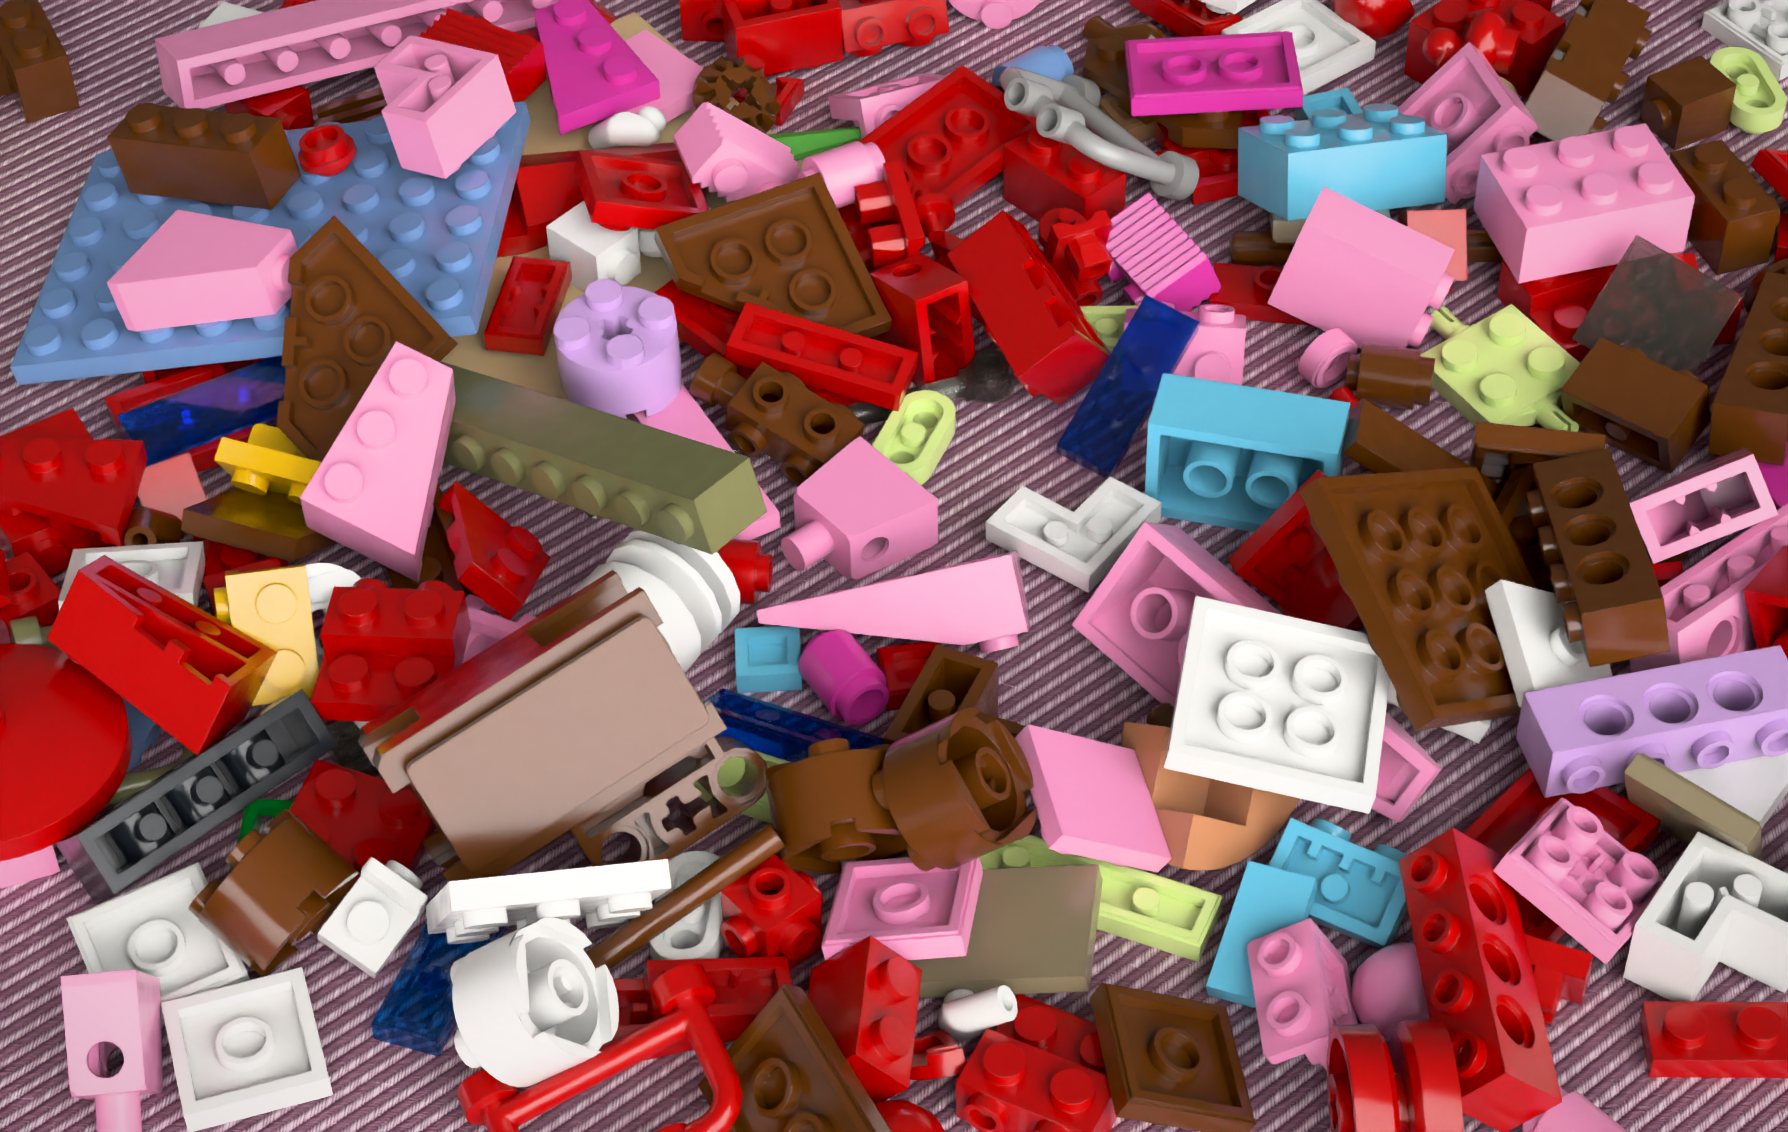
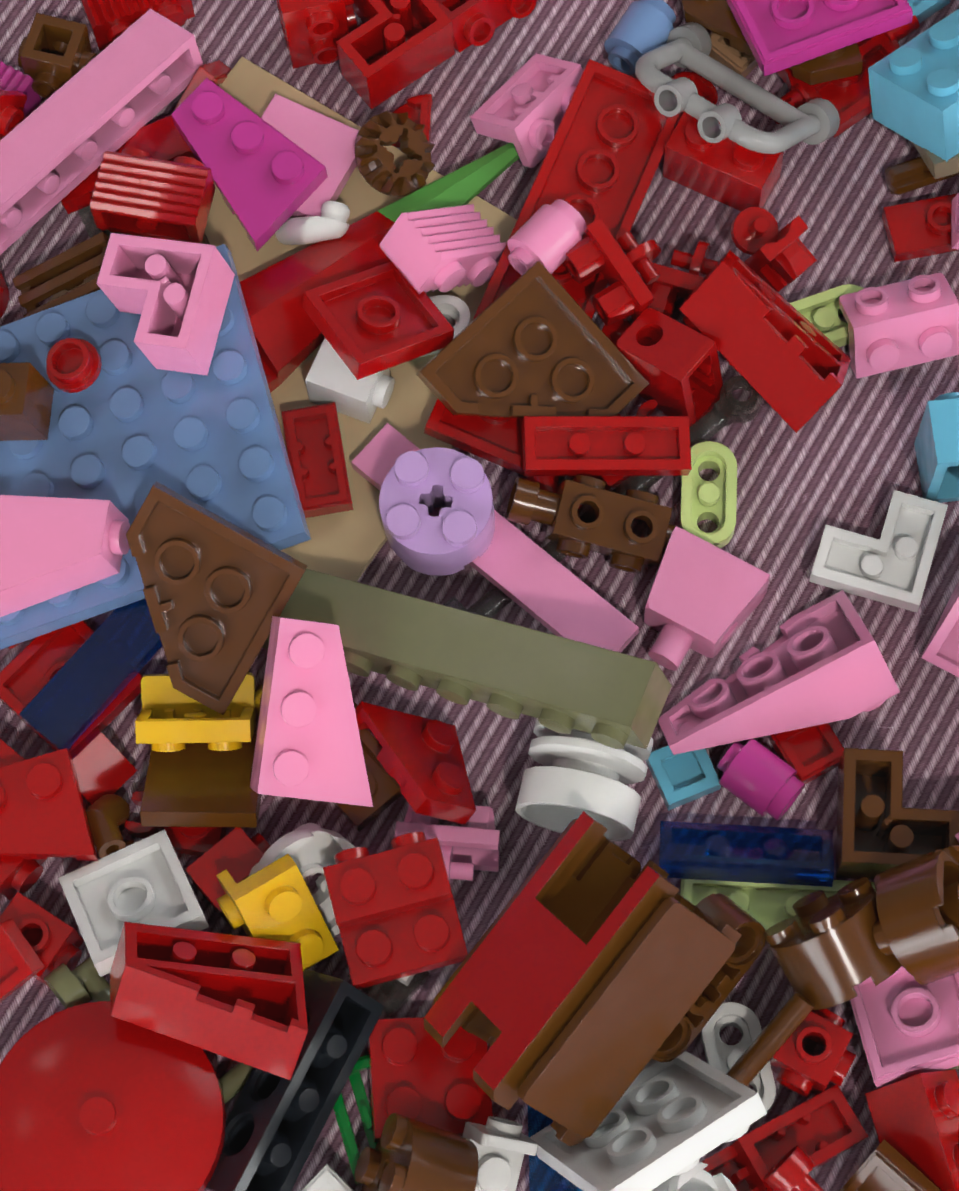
camera: 15 degrees left, 25 degrees up
(1127, 387) = (876, 390): clear blue tile -> none
(1158, 258) = (839, 229): brick -> none

